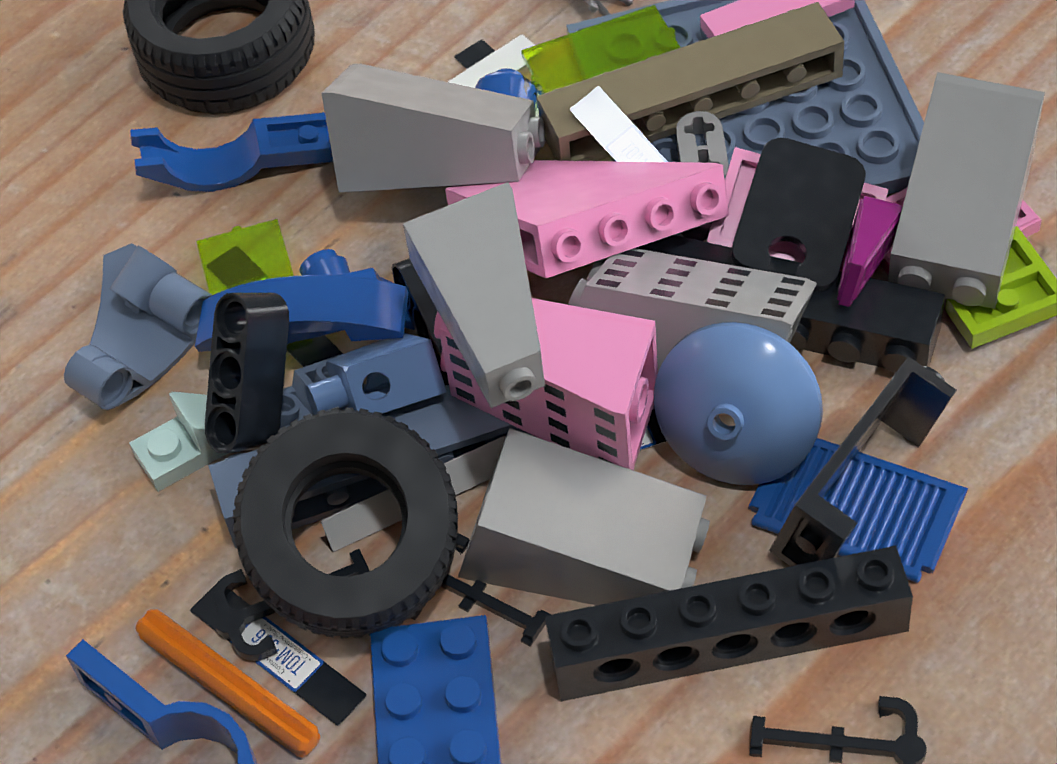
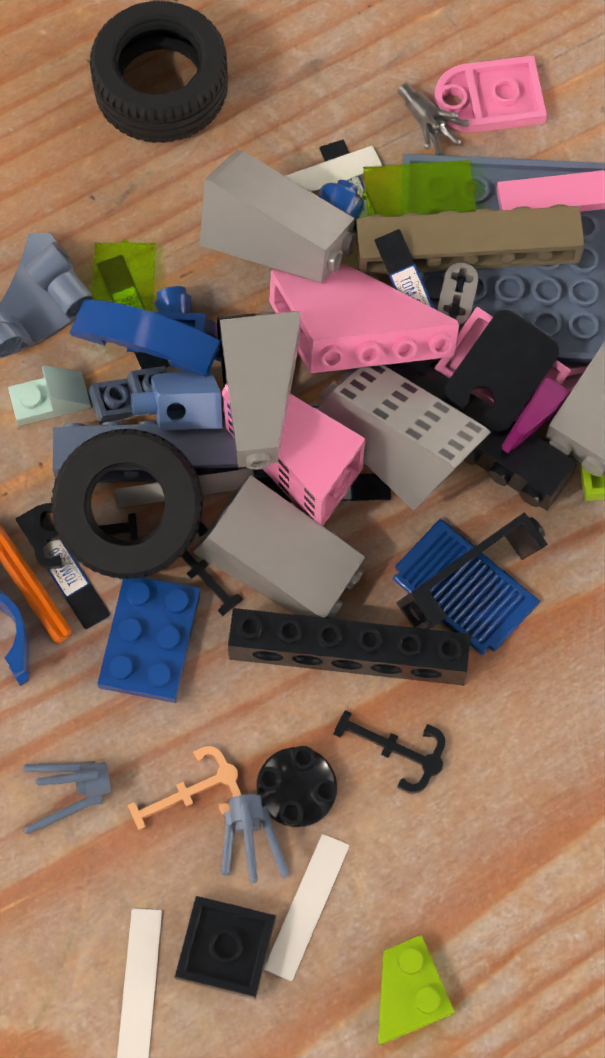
camera: 10 degrees right, 15 degrees up
(246, 371) = (95, 371): black beam -> none
(263, 145) = (133, 187): blue piece -> none
(754, 381) = (407, 500): medium blue dish -> none

